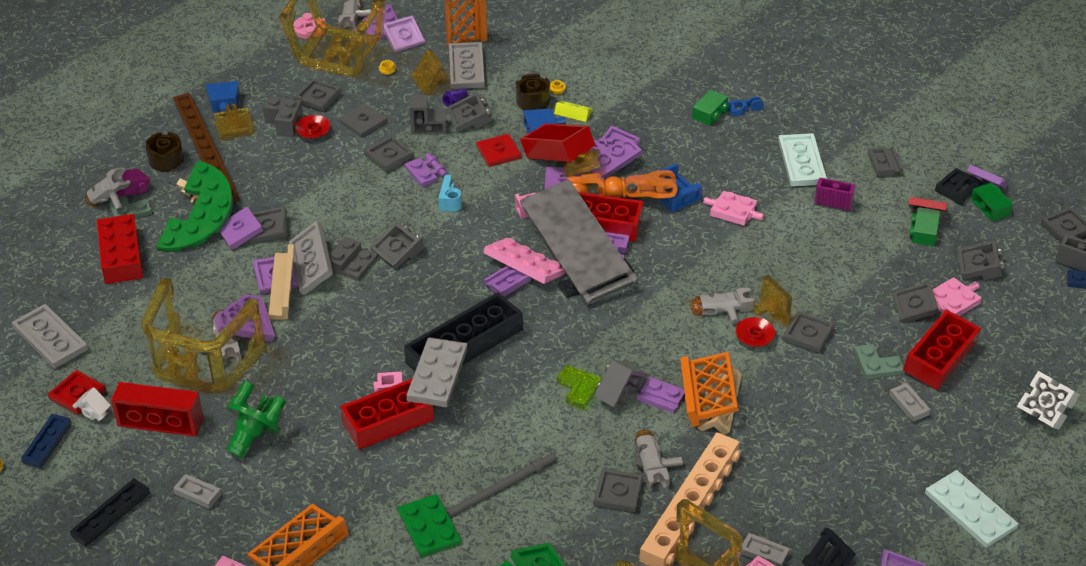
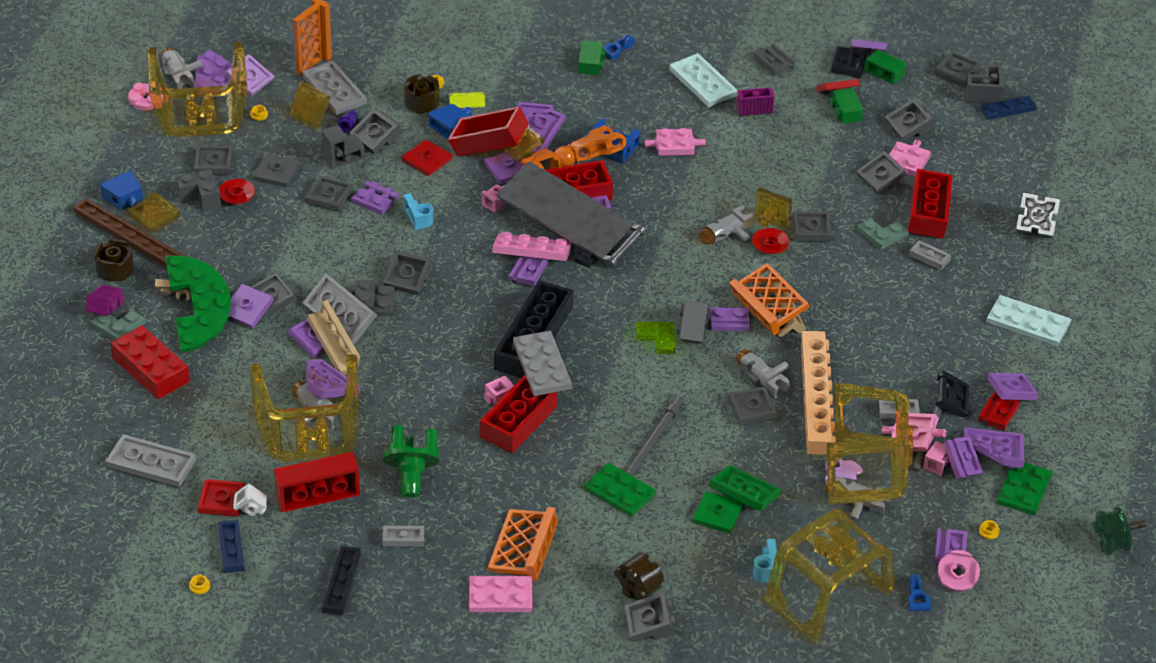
camera: 30 degrees left, 0 degrees up
(106, 188) = (95, 309): light grey piece -> none

